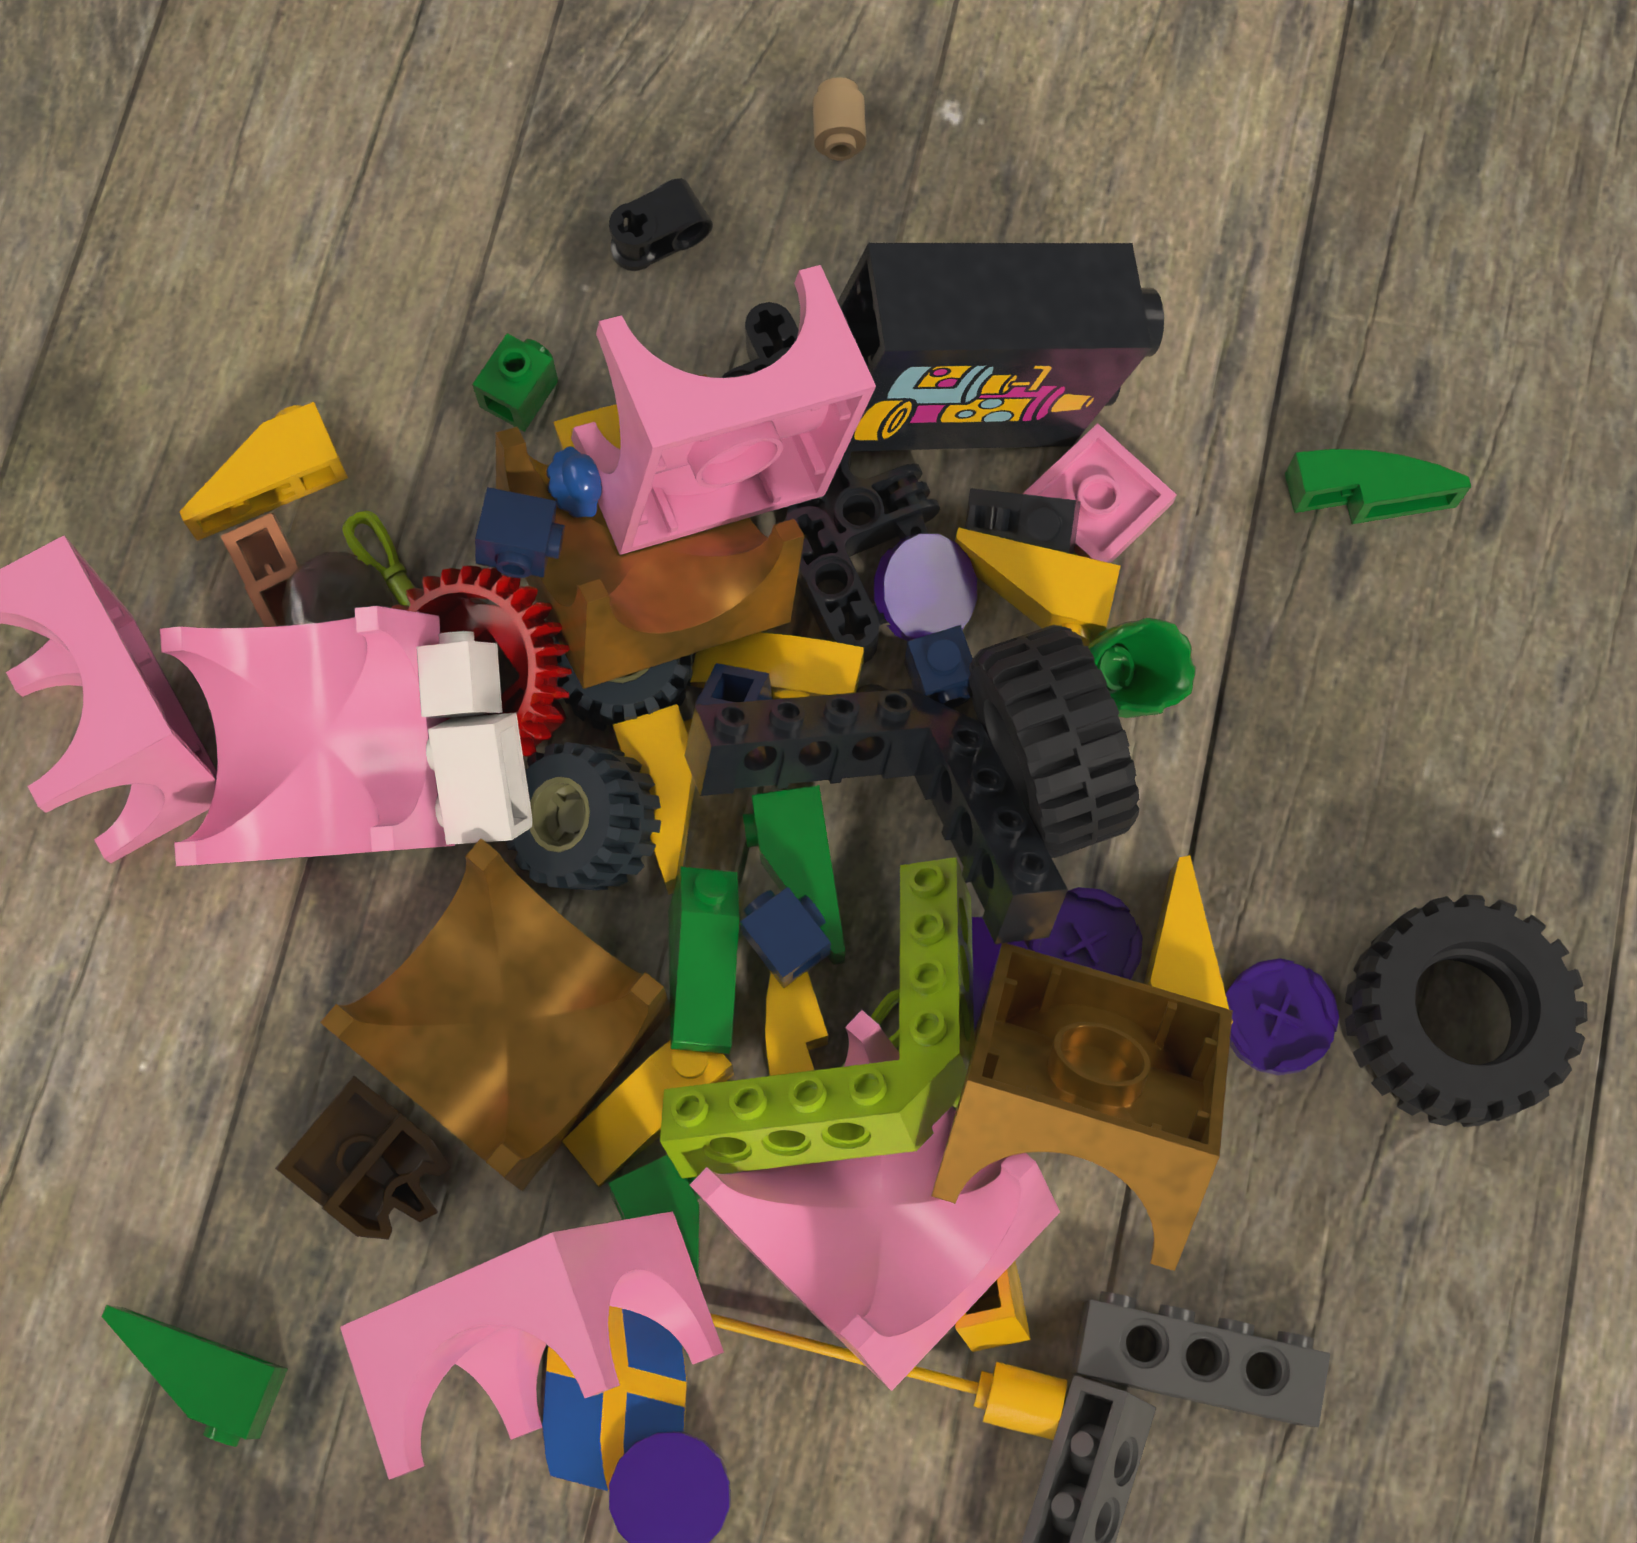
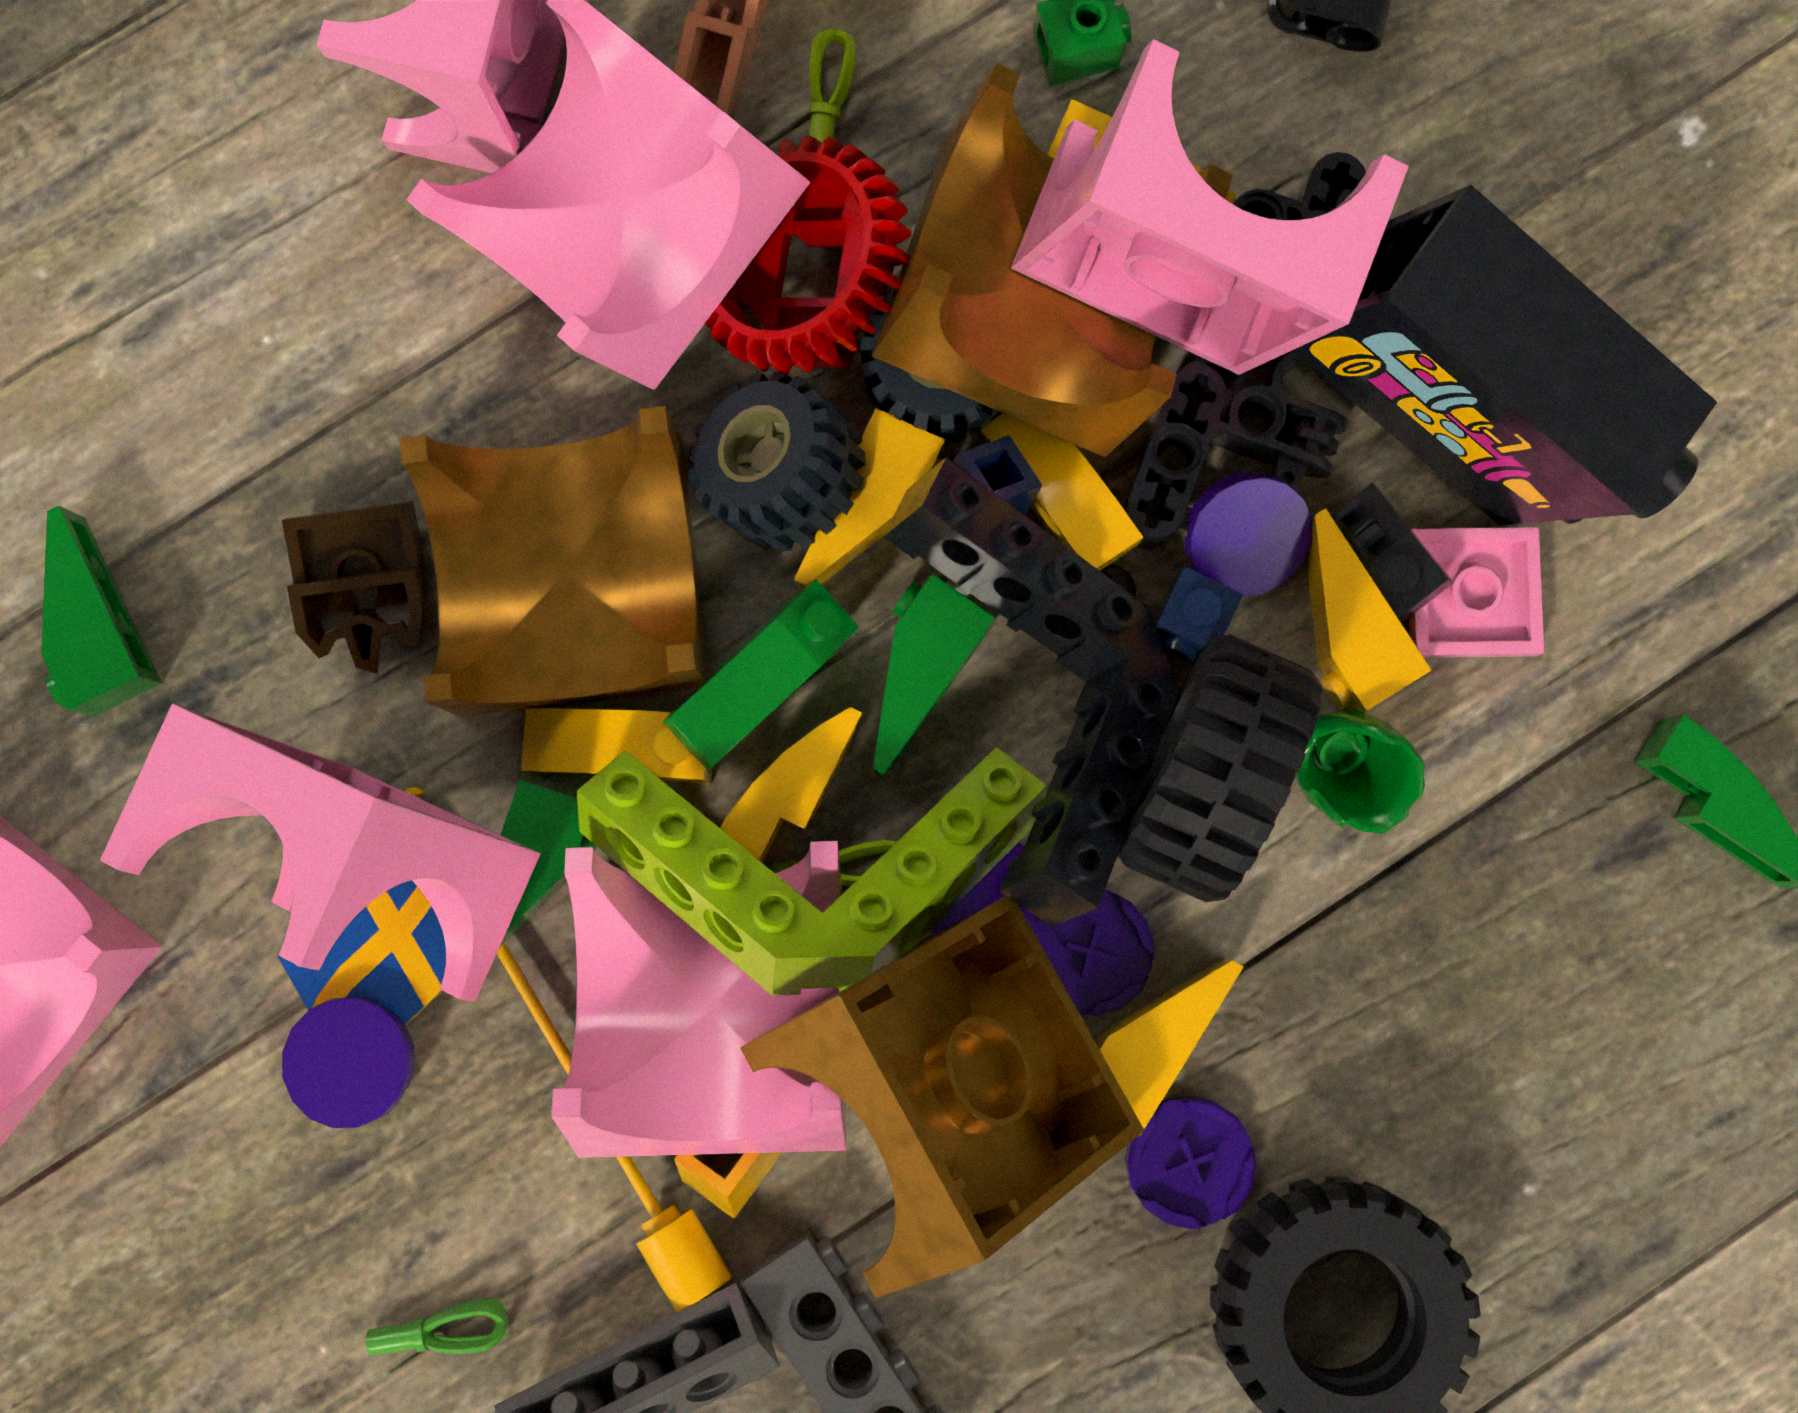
camera: 45 degrees right, 10 degrees up
(332, 588) = (757, 86): clear smoke tile -> none
(459, 677) = (773, 251): white brick -> none
(479, 778) = (715, 353): white piece -> none
(517, 533) = (934, 170): dark blue brick -> none
(574, 482) = (1028, 169): blue piece -> none
(786, 933) = (844, 715): dark blue brick -> none
(839, 119) = (1584, 48): tan brick -> none

